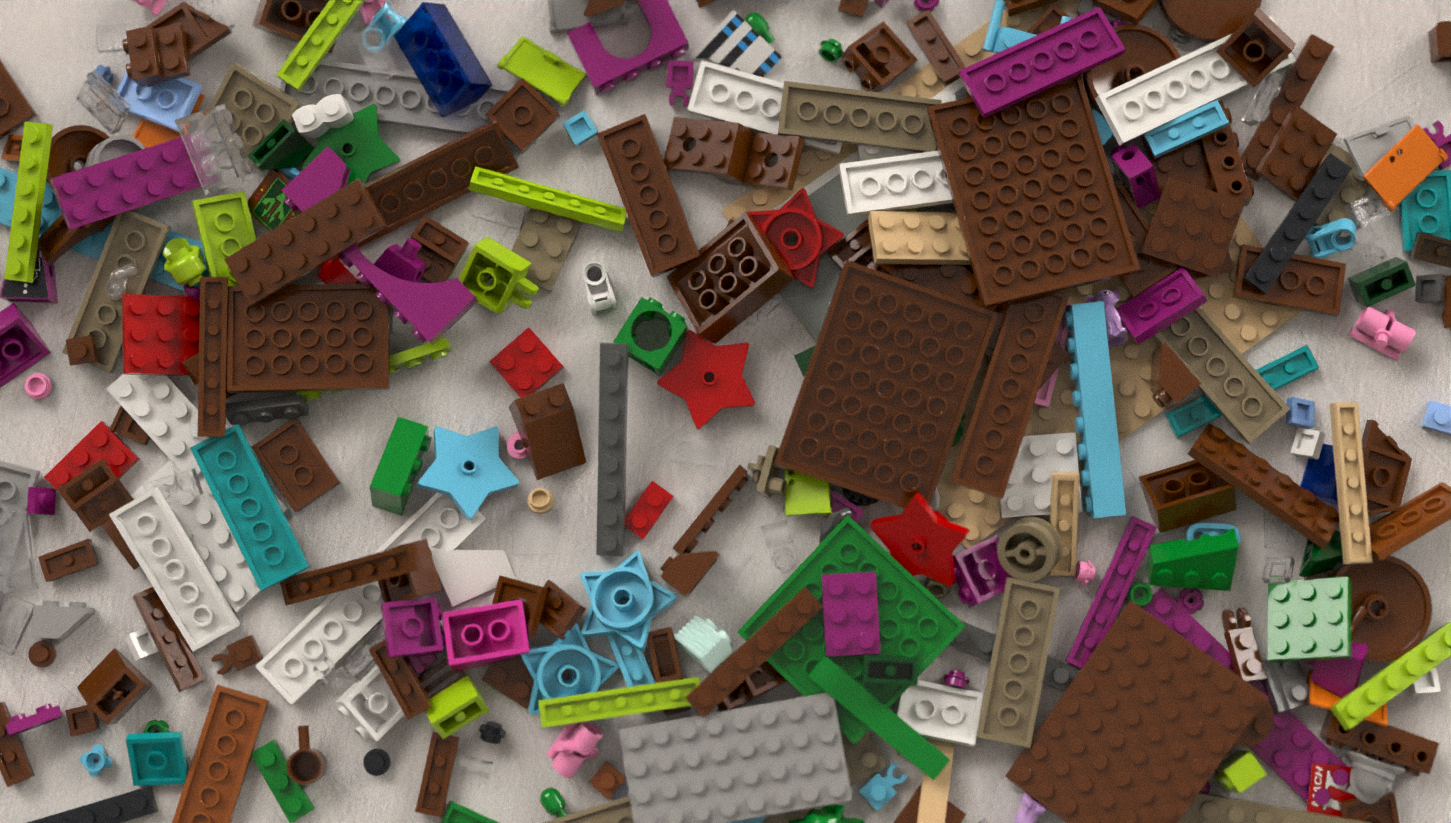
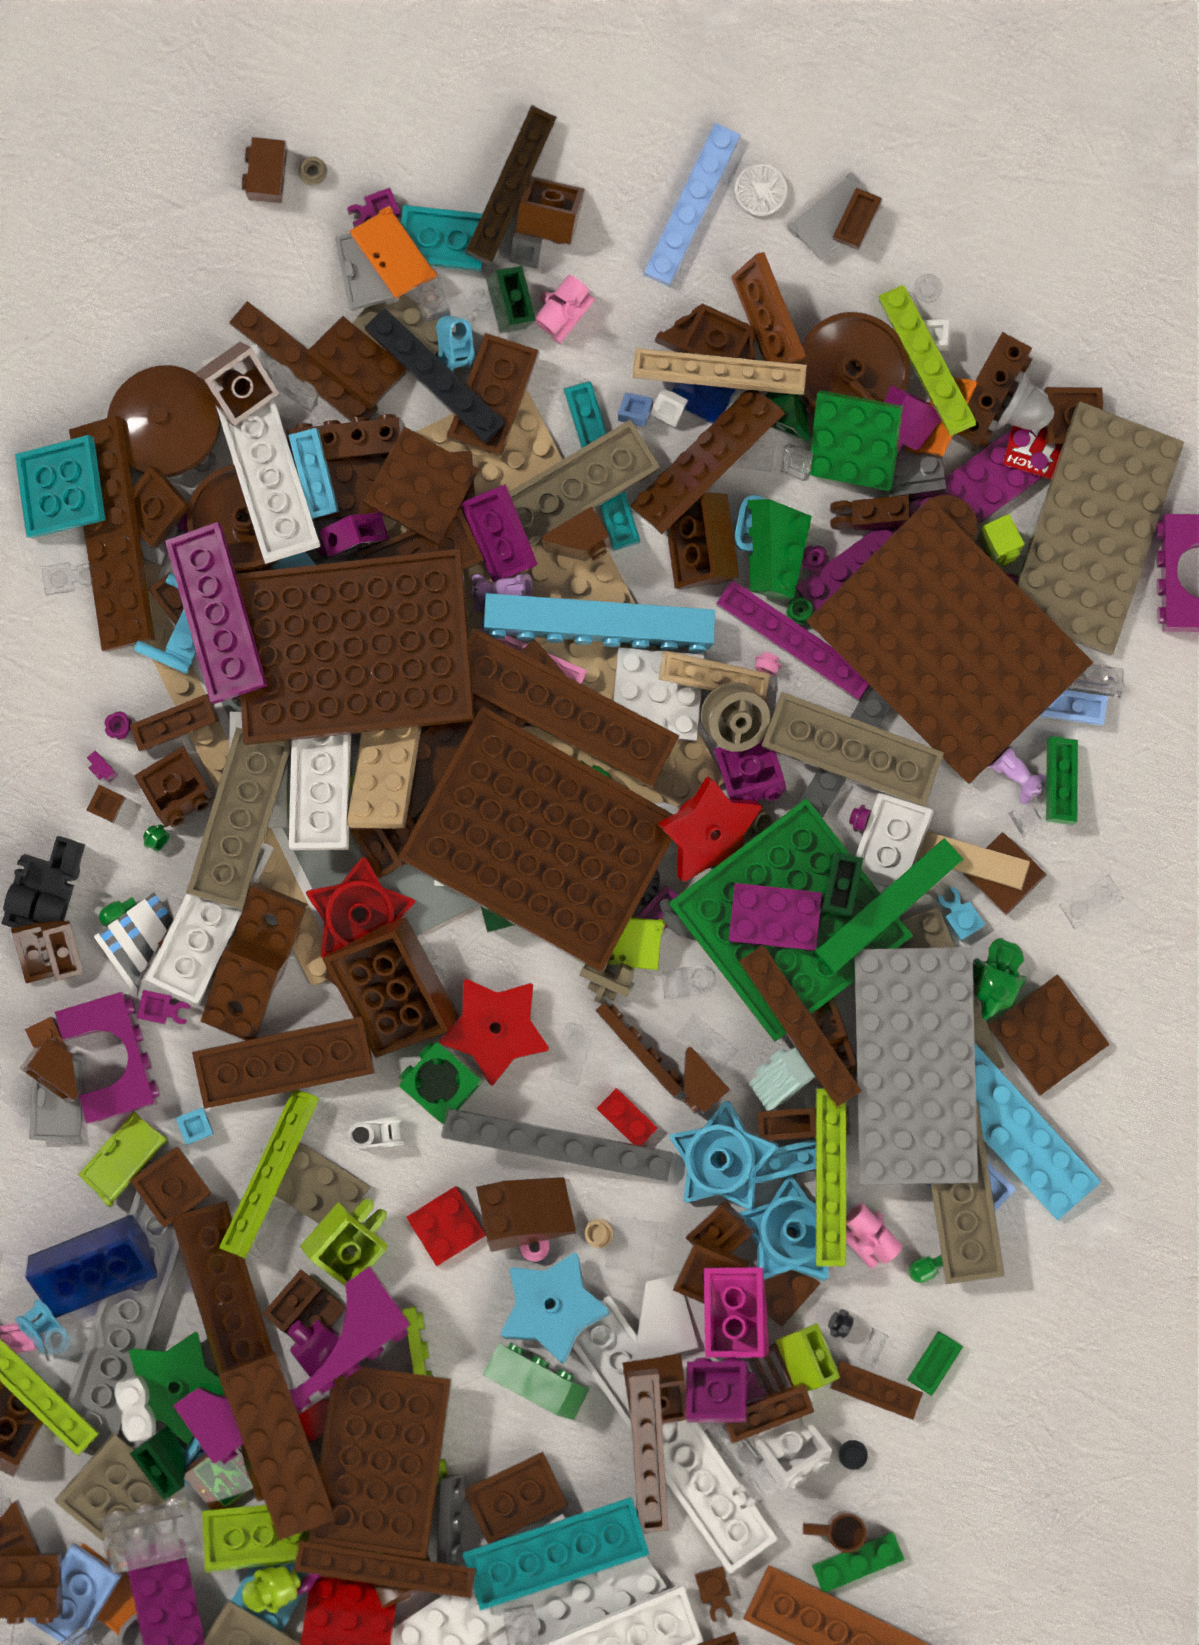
camera: 85 degrees left, 0 degrees up
(607, 780) = (910, 1206): dark orange plate -> none

